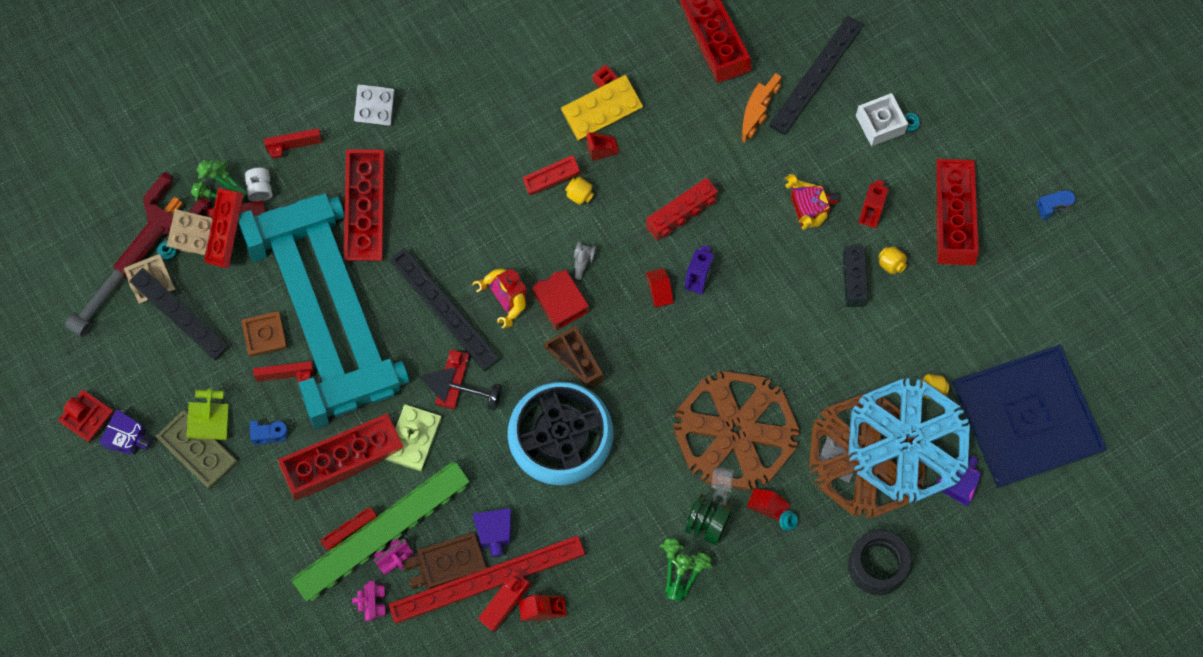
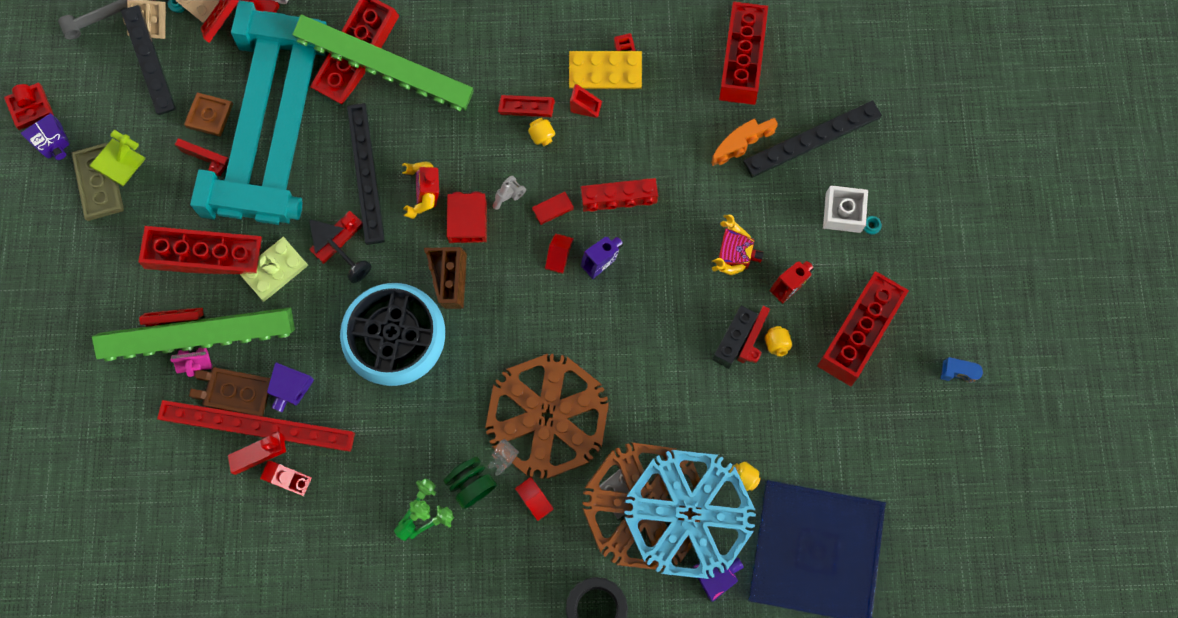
camera: 30 degrees right, 5 degrees up
(268, 433) = (162, 201): blue leg -> none
(367, 599) = (146, 397): dark pink hips -> none
(403, 203) = (383, 63): none -> bright green brick
(629, 252) = (552, 208): none -> red tile
(788, 520) = (541, 523): teal plate -> none
(873, 282) = (749, 352): none -> red hinge

